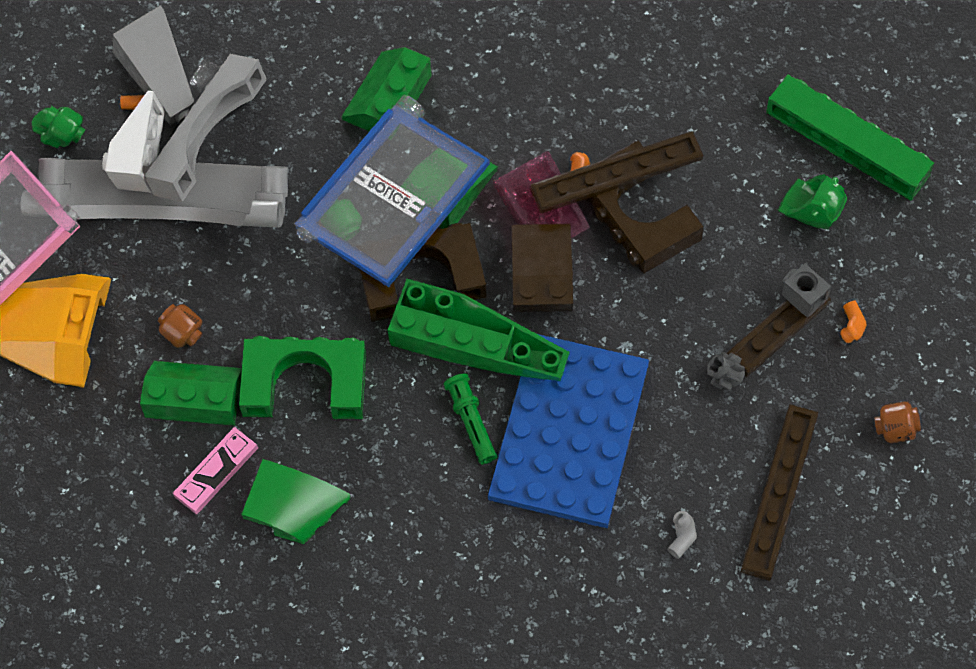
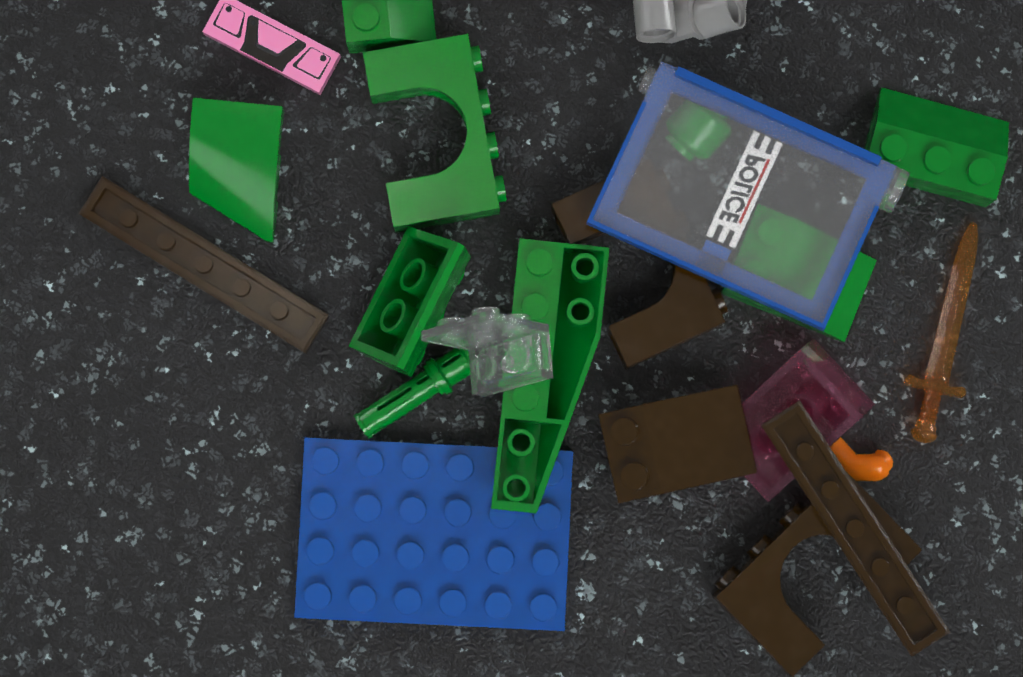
camera: 75 degrees right, 20 degrees up
(354, 542) = (204, 264): none -> dark brown tile
(413, 403) = (410, 299): none -> green slope
(459, 348) = (501, 348): none -> clear bracket
(509, 110) = (945, 340): none -> clear orange sword

